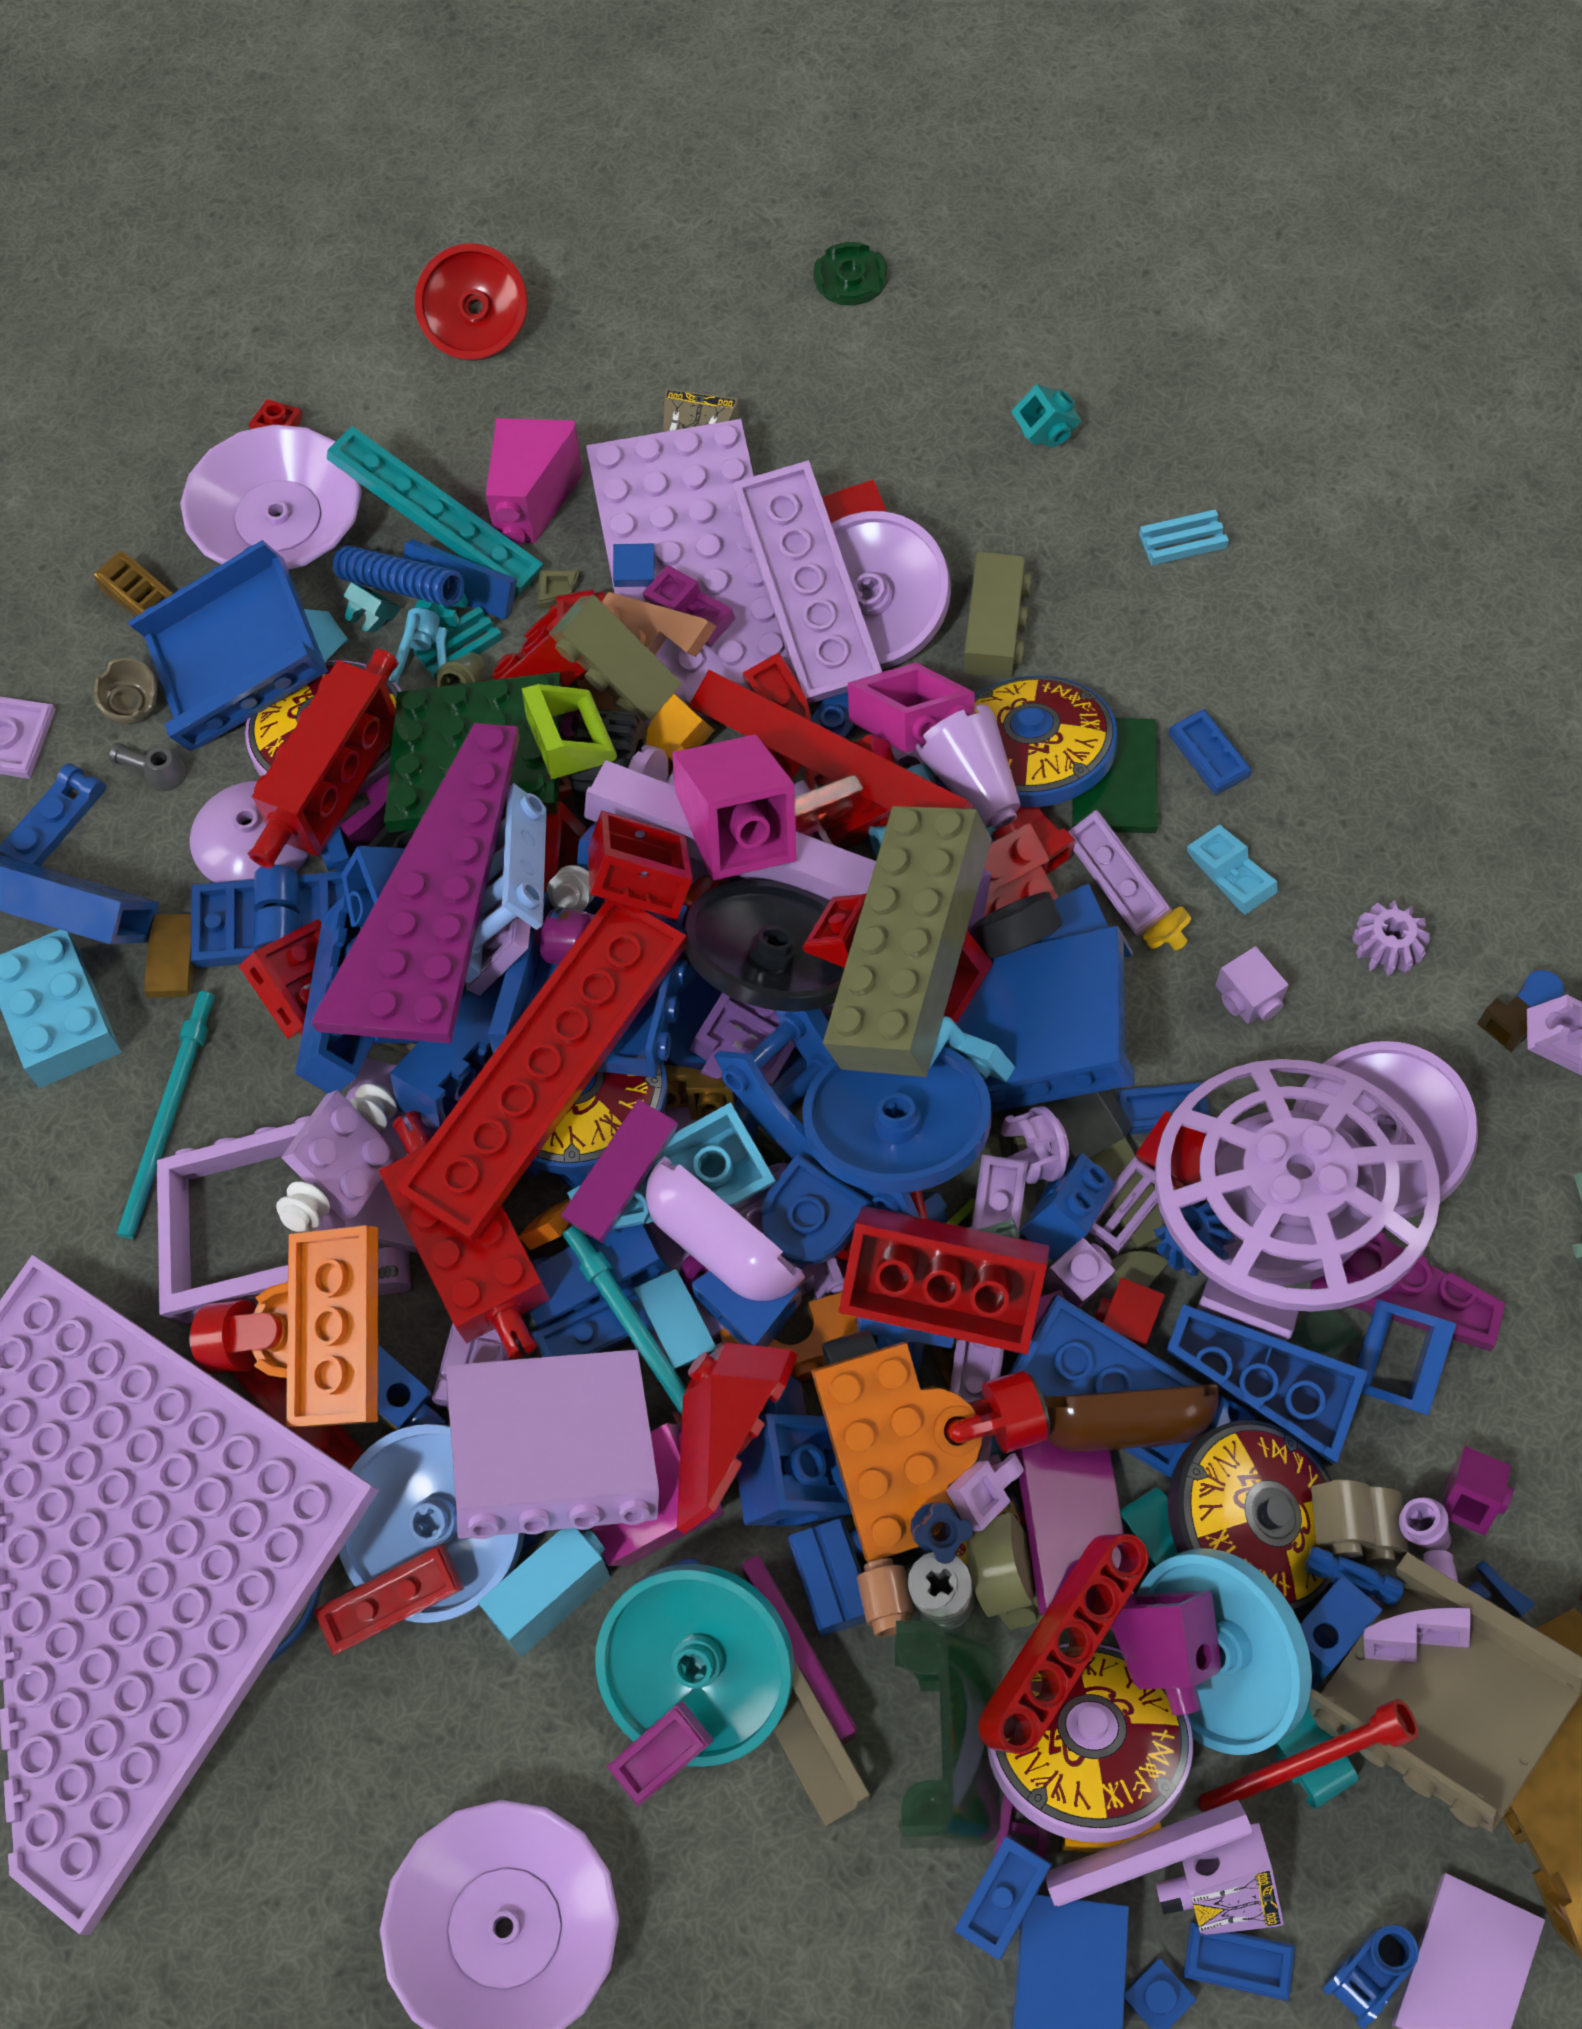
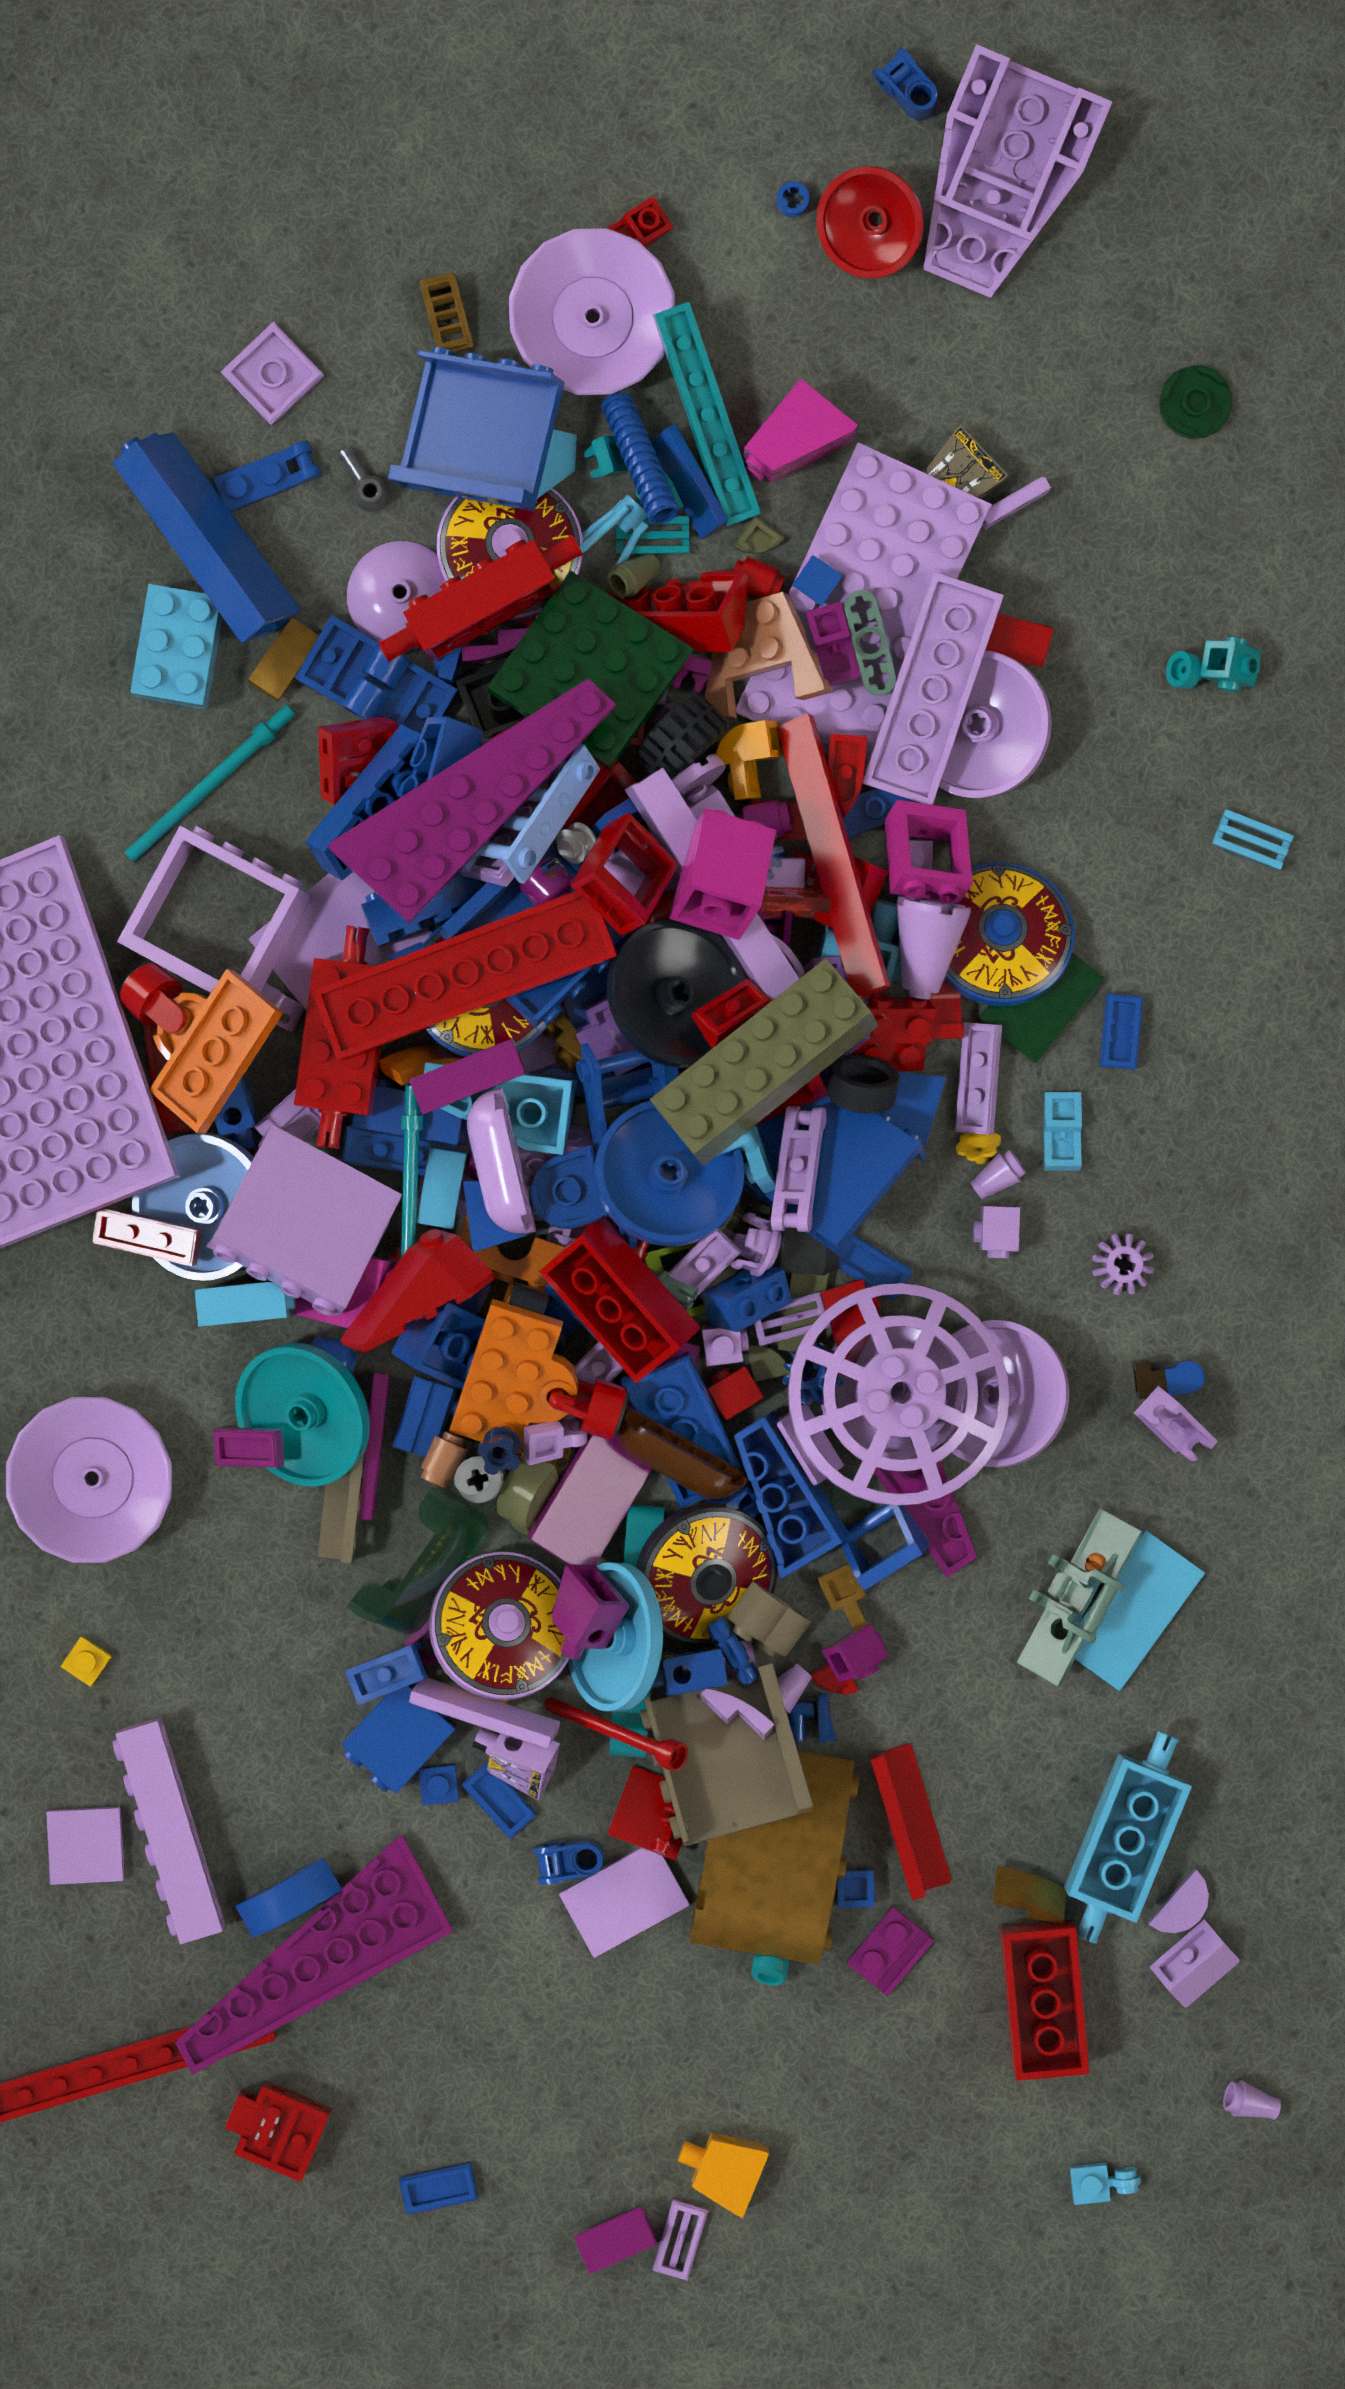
camera: 30 degrees right, 25 degrees up
(119, 685) = (371, 403): dark tan hair -> none
(338, 1157) = (295, 928): lavender plate -> none
(389, 346) = (783, 203): none -> blue bush
(434, 207) = (903, 80): none -> blue piece
(556, 205) = (1005, 166): none -> lavender wedge
(564, 756) = (632, 742): lime tile -> none
(614, 658) = (738, 666): olive brick -> none
(716, 566) = (854, 618): none -> sand green beam
(763, 417) = (1016, 501): none -> lavender tile
(996, 615) = (1058, 808): olive brick -> none
(1011, 449) = (1183, 670): none -> teal tile
(1022, 1031) = (798, 1168): none -> lavender plate
(1042, 1650) = (512, 1582): red beam -> none
(1209, 940) = (998, 1175): none -> lavender cone
(1405, 1439) = (844, 1591): none -> pearl gold plate
(1416, 1843) = (644, 1816): none -> red hinge
(1425, 1524) = (800, 1647): lavender cone -> none
(1471, 1545) = (826, 1679): none -> red tile

